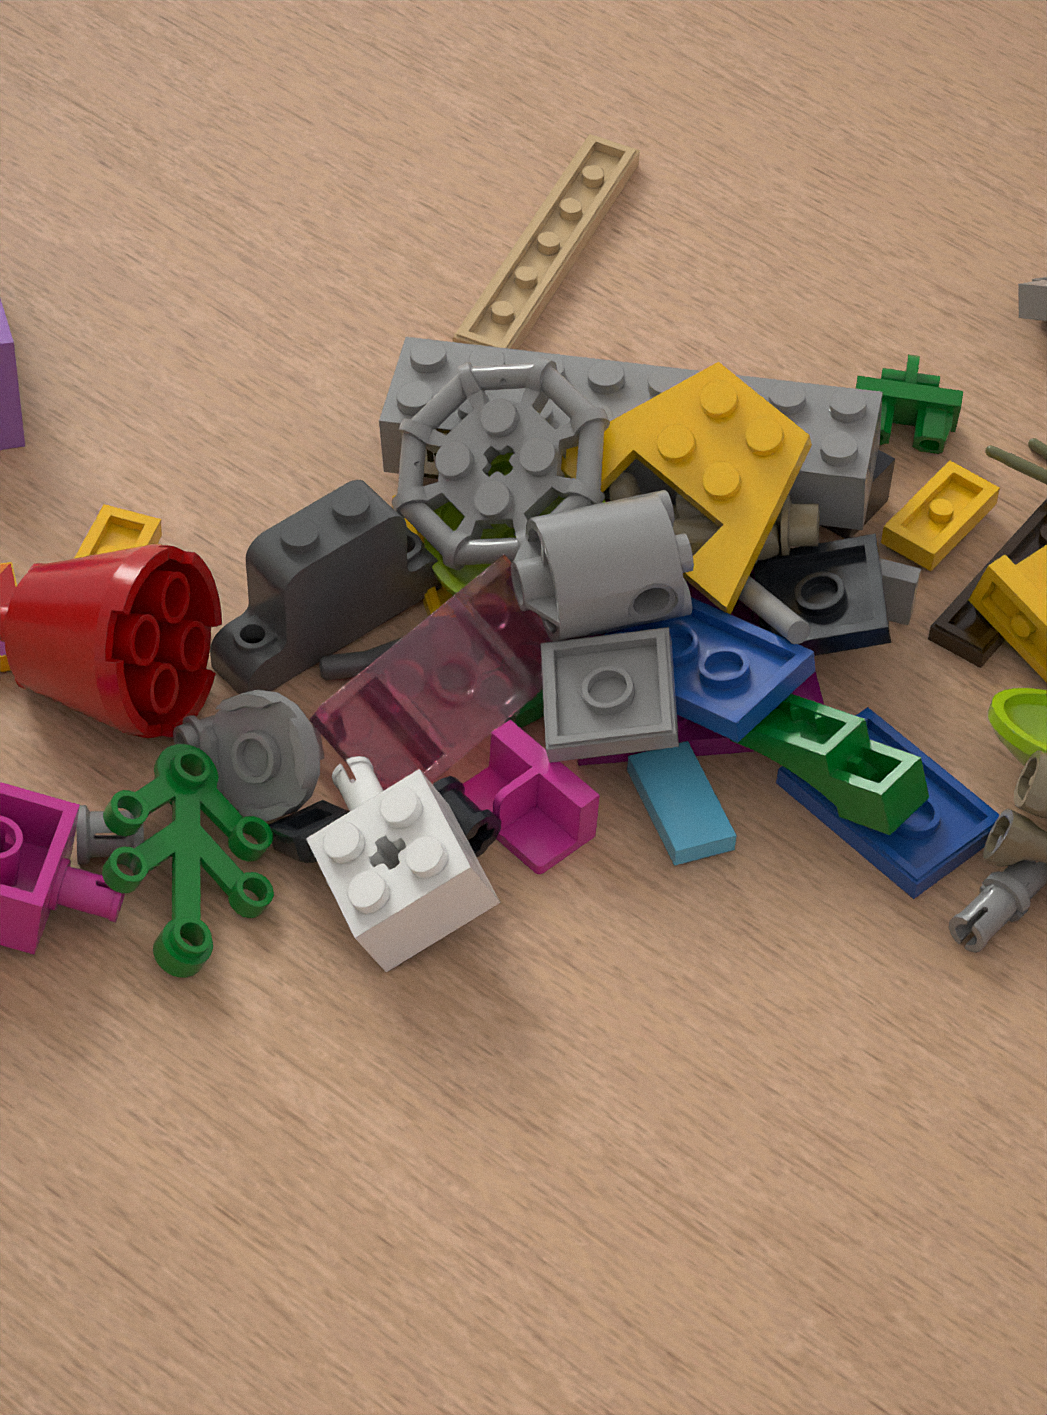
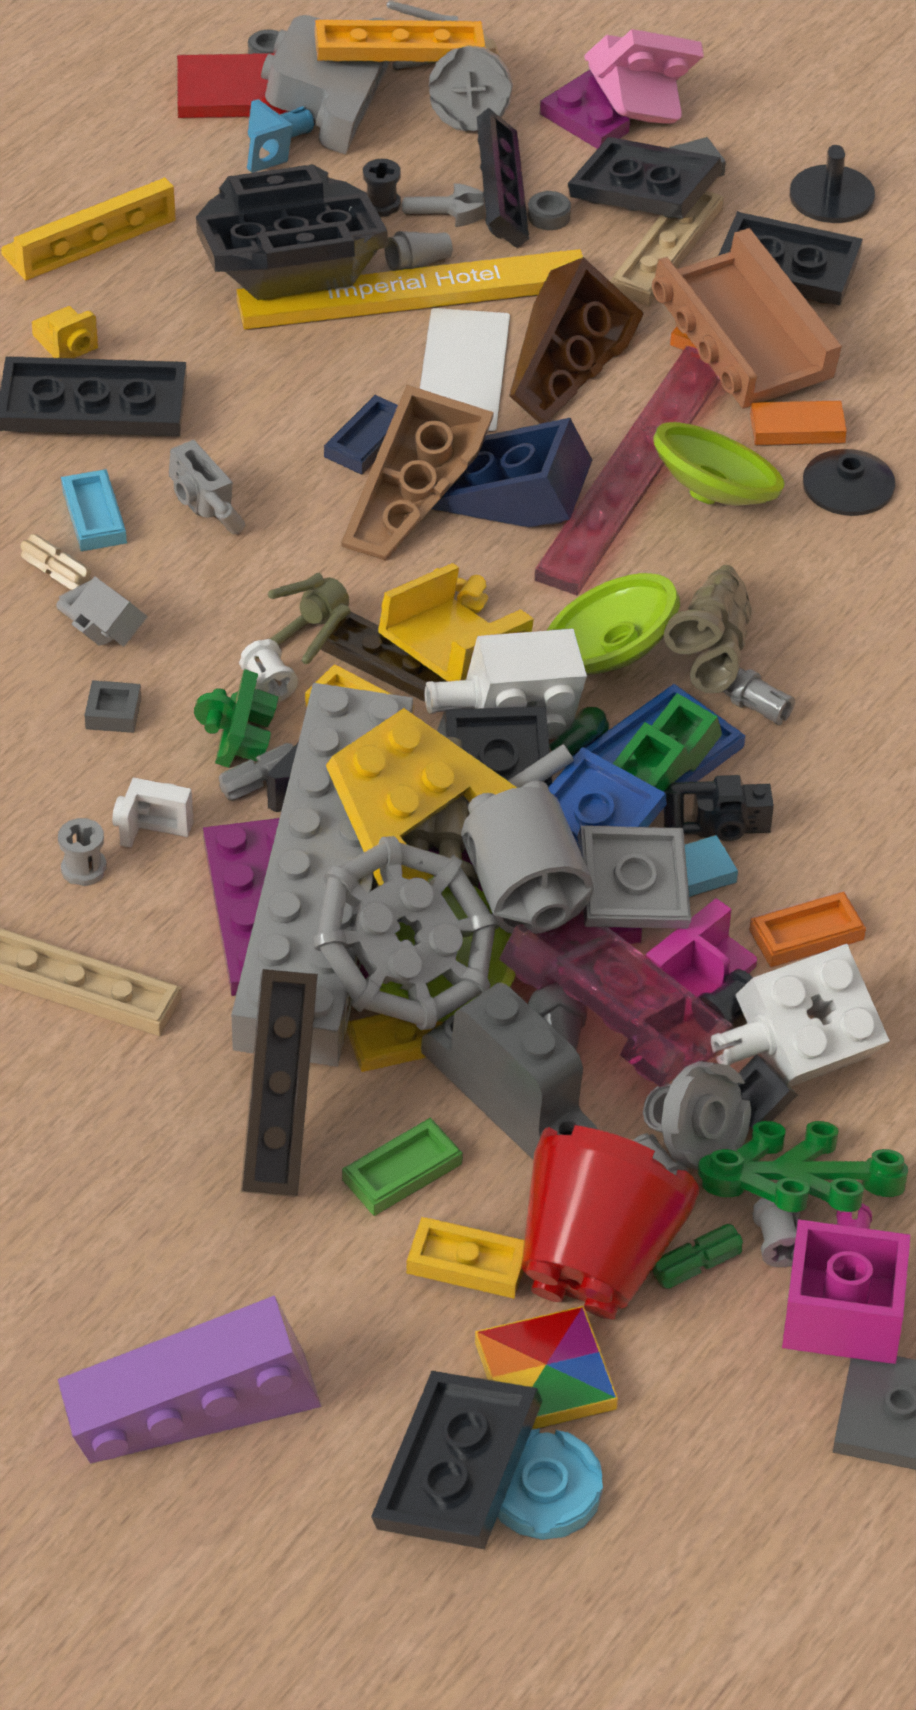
camera: 90 degrees left, 0 degrees up
(85, 756) = (708, 1252): none -> green piece
(235, 512) = (402, 1166): none -> bright green tile
(306, 367) = (279, 1083): none -> dark brown brick
(588, 923) = (807, 929): none -> orange tile
(696, 268) = (85, 849): none -> light grey bush
(759, 321) = (153, 807): none -> white bracket
(777, 842) = (720, 807): none -> black piece
(913, 718) = (585, 728): none -> dark green arm
(933, 317) = (113, 706): none -> dark grey tile
(942, 625) = (518, 672): none -> white brick
(1003, 430) = (269, 669): none -> white bush

